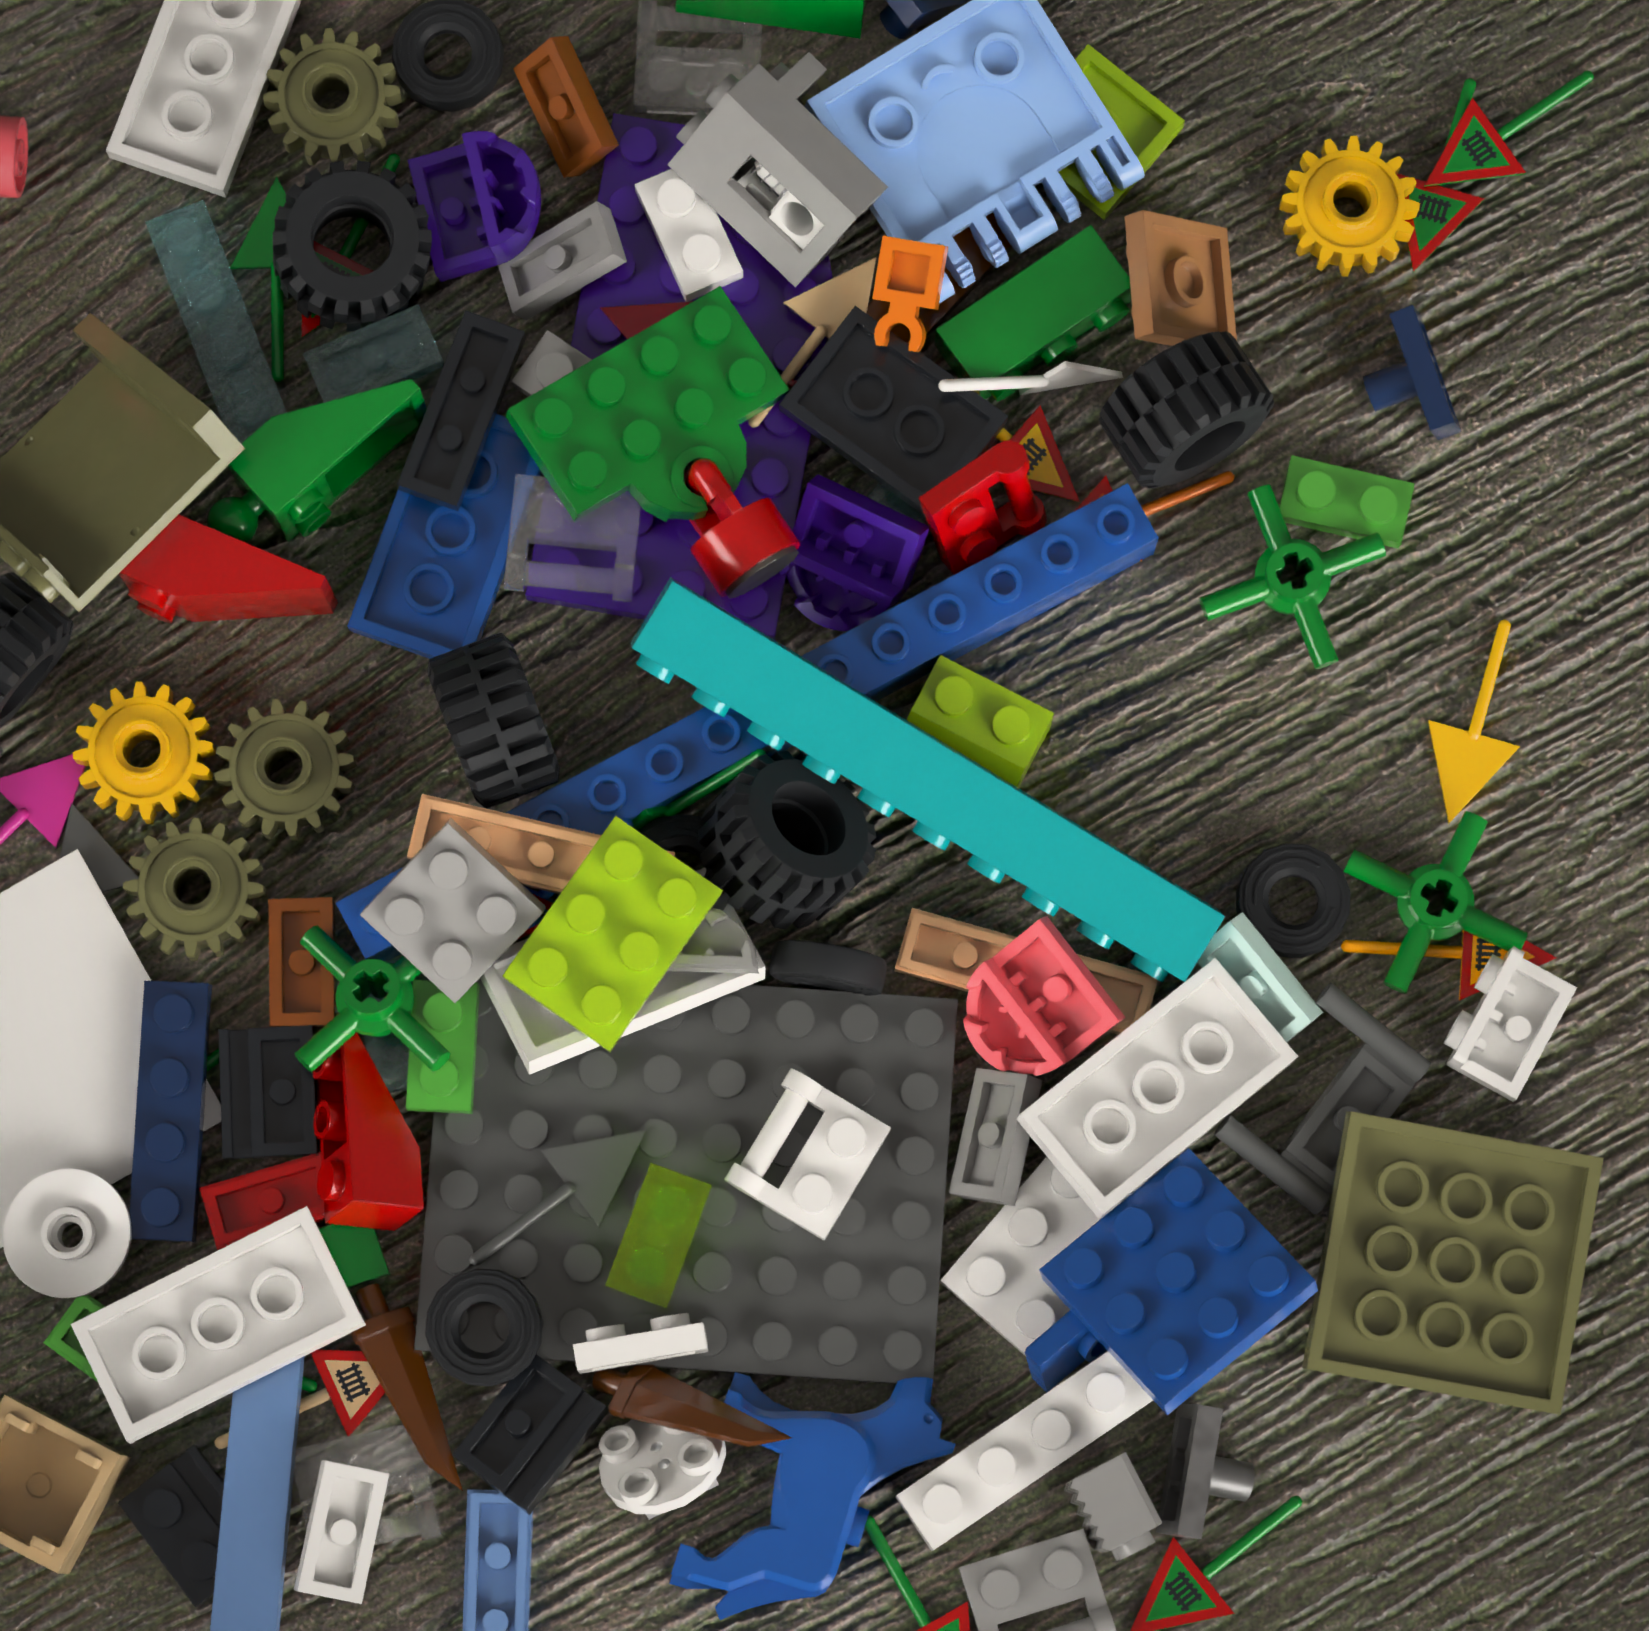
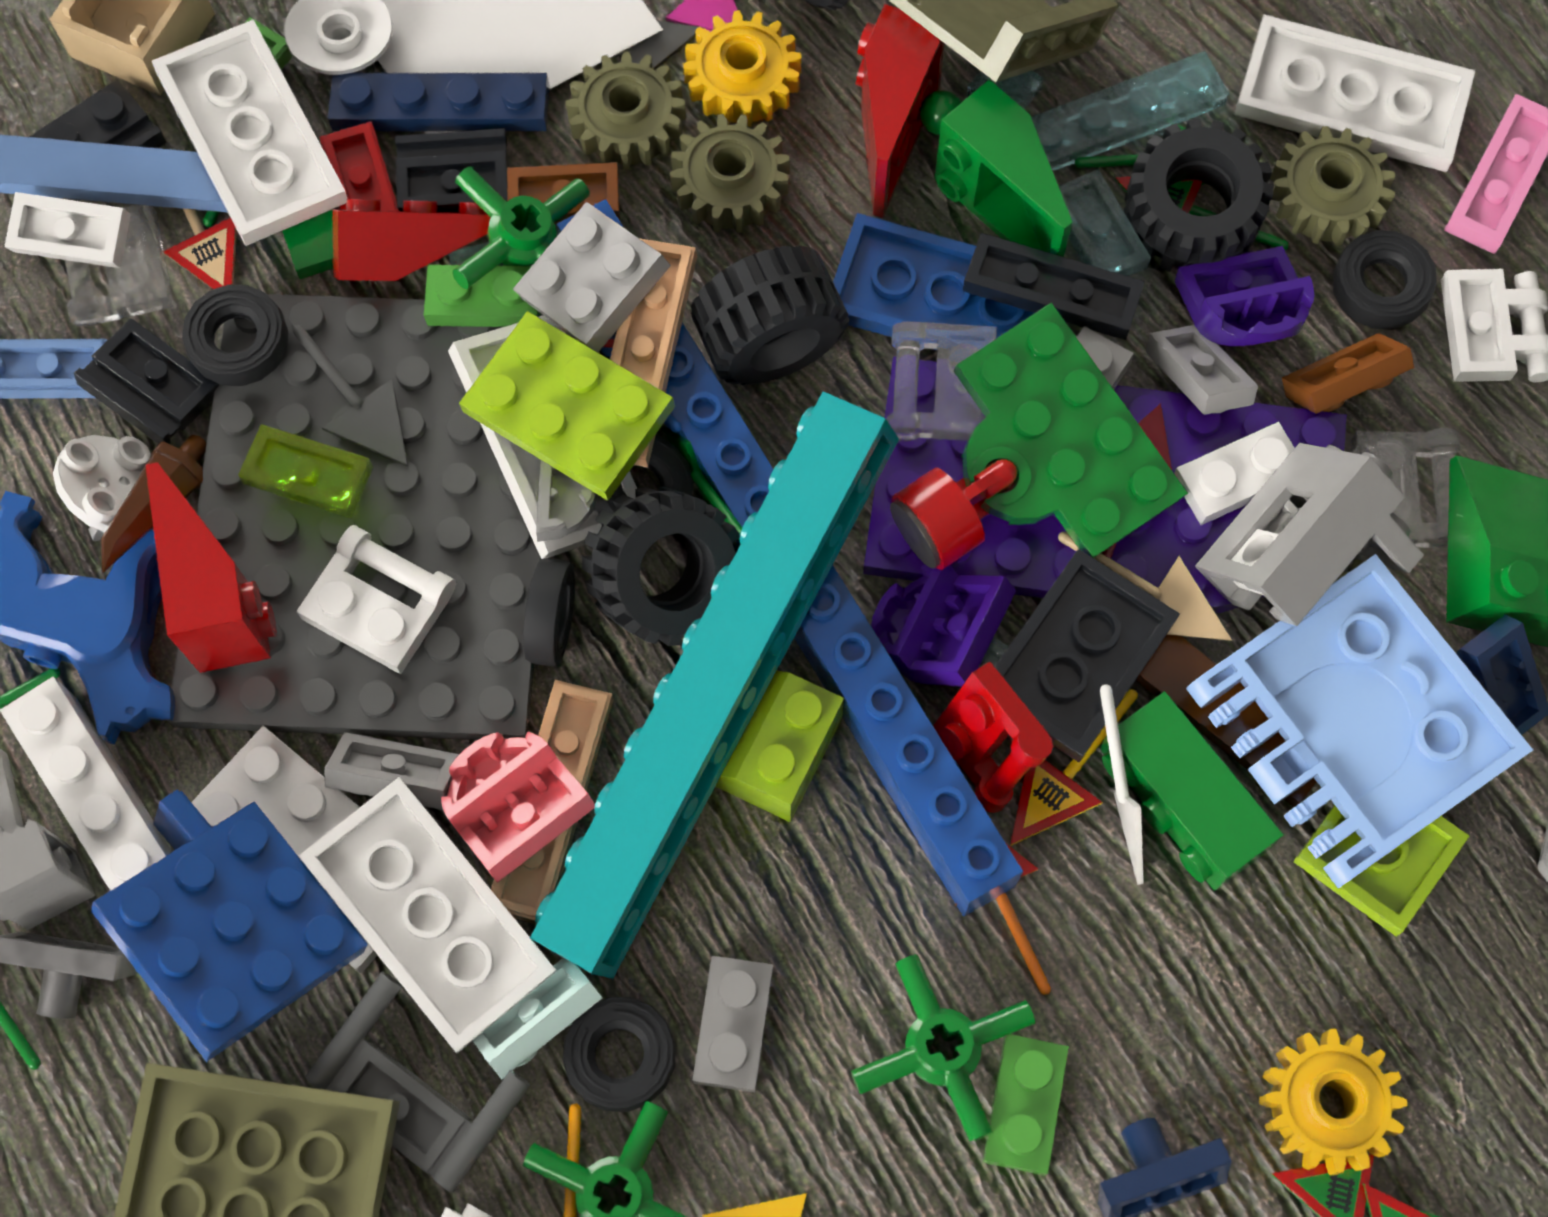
camera: 90 degrees right, 10 degrees down
(402, 1372) = (180, 291): reddish brown bar -> none
(612, 1348) = (209, 476): white plate -> none
(808, 1322) = (205, 597): none -> red slope
(908, 278) = (1205, 652): orange plate -> none
(1178, 278) = (1233, 926): medium nougat plate -> none
(1186, 409) = (1102, 927): black tyre -> none
(1262, 787) = (733, 1024): none -> light grey plate

